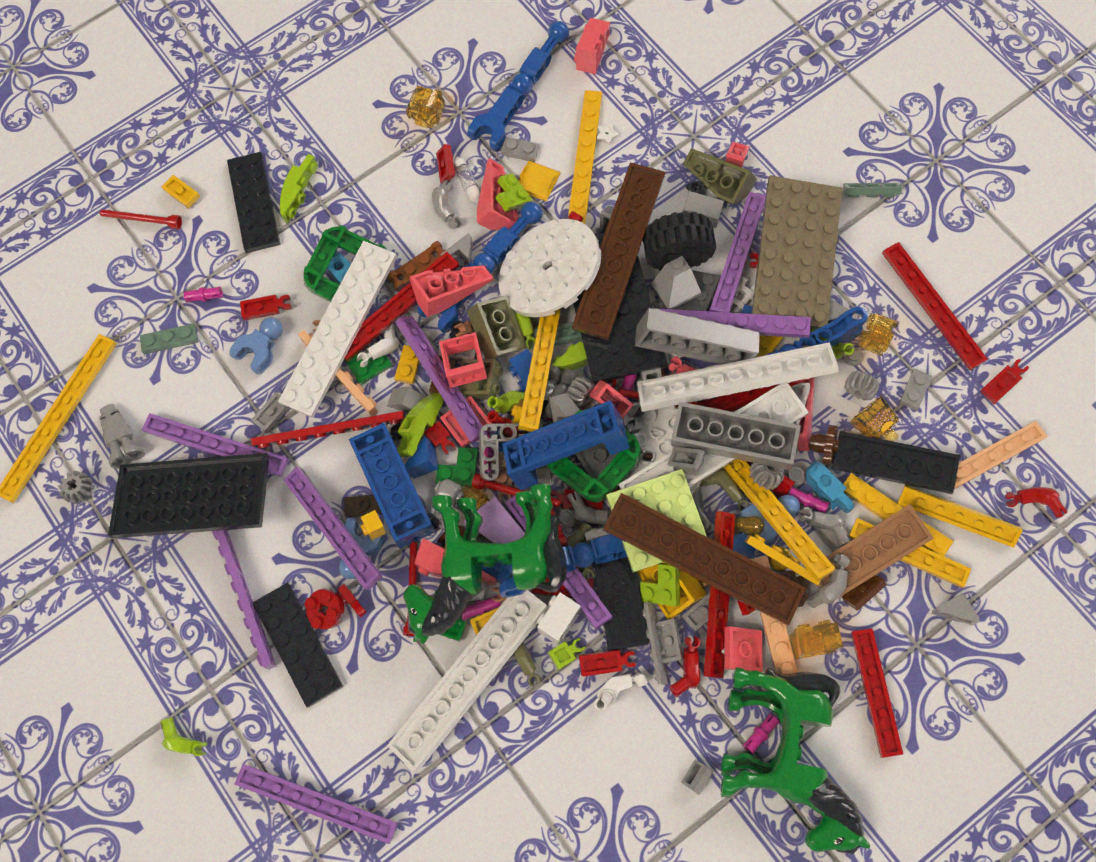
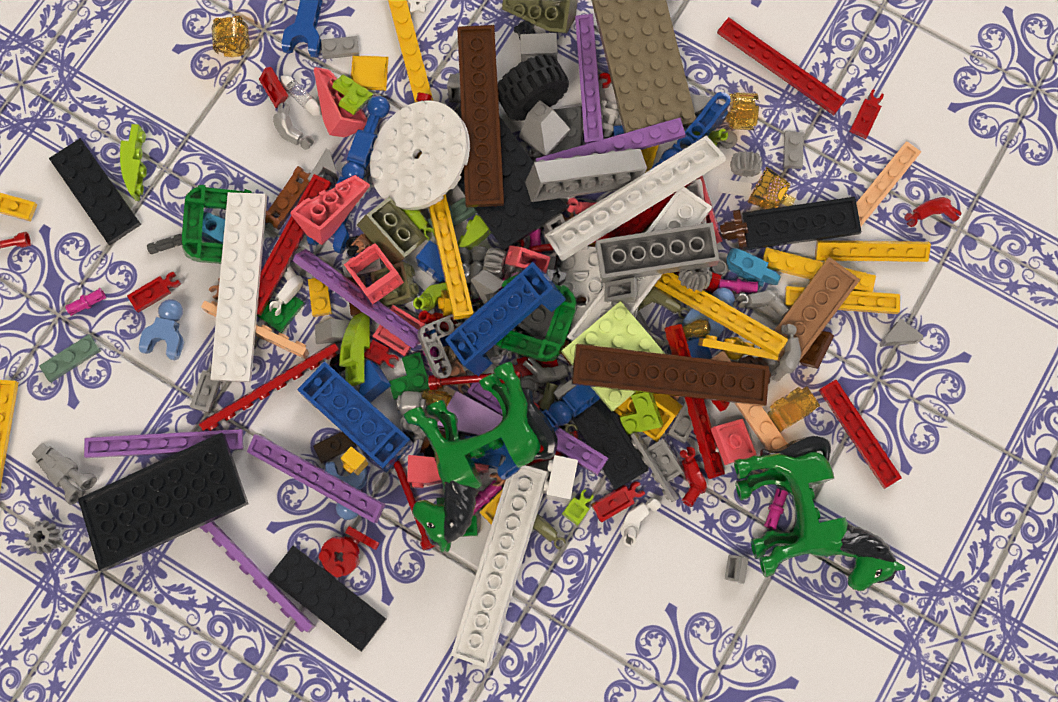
camera: 30 degrees left, 5 degrees up
(290, 268) = (164, 244): none -> dark grey axle

